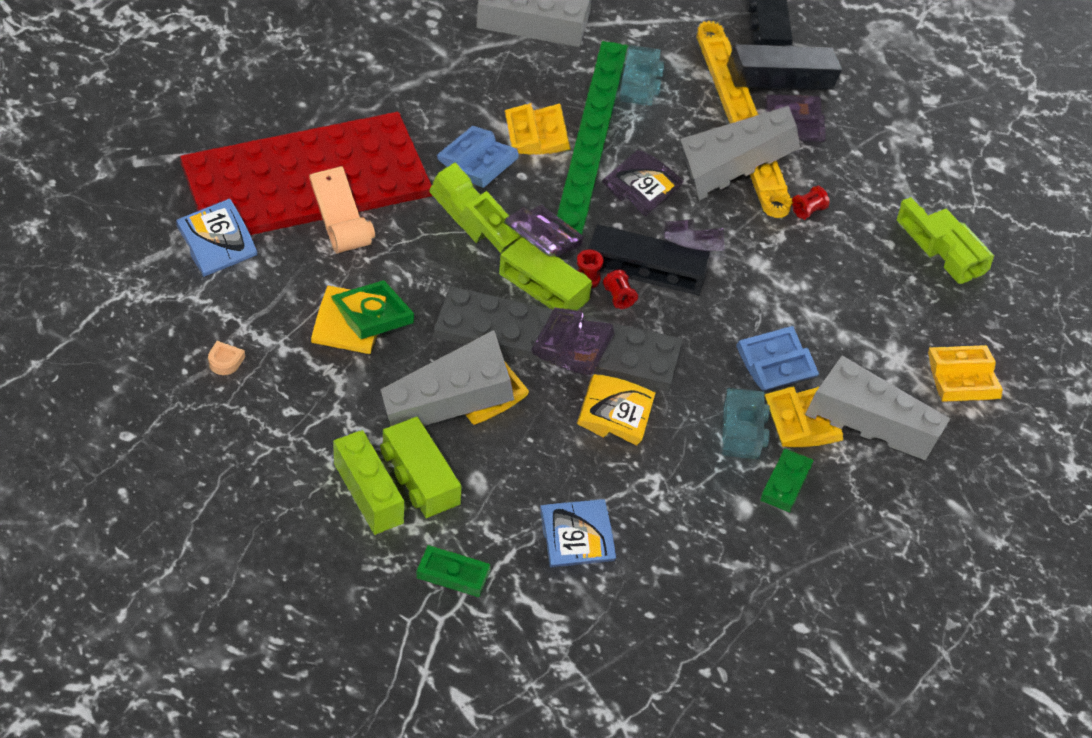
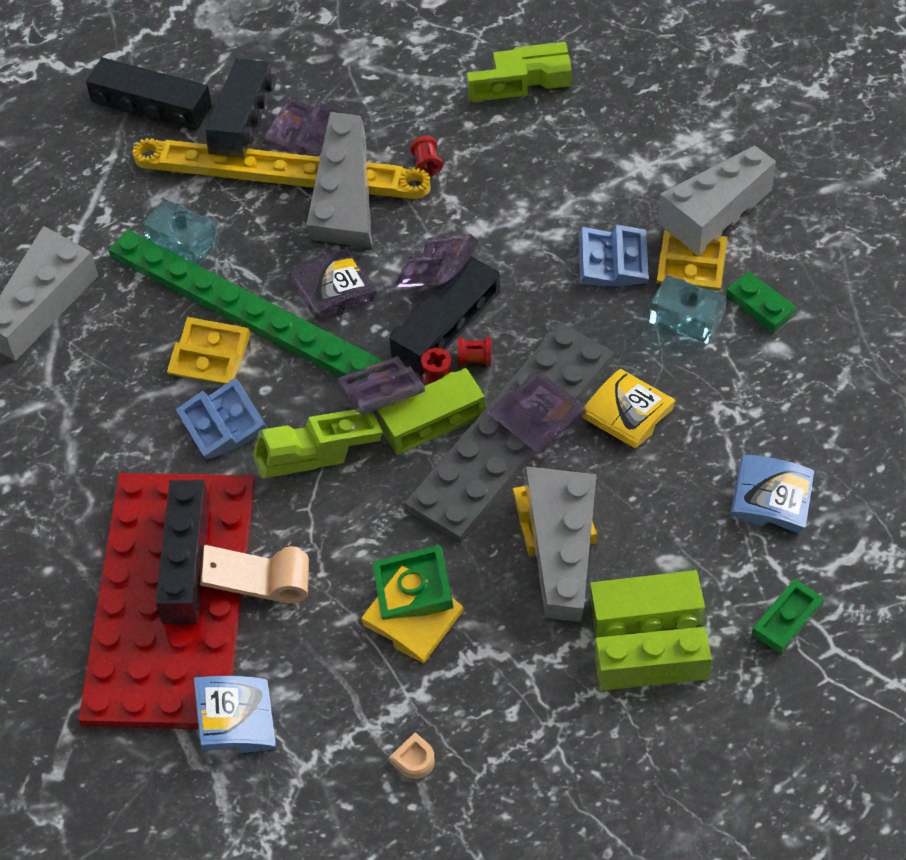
camera: 60 degrees left, 5 degrees up
(357, 151) = (181, 552): none -> black brick
(964, 373) = (683, 122): yellow slope -> none

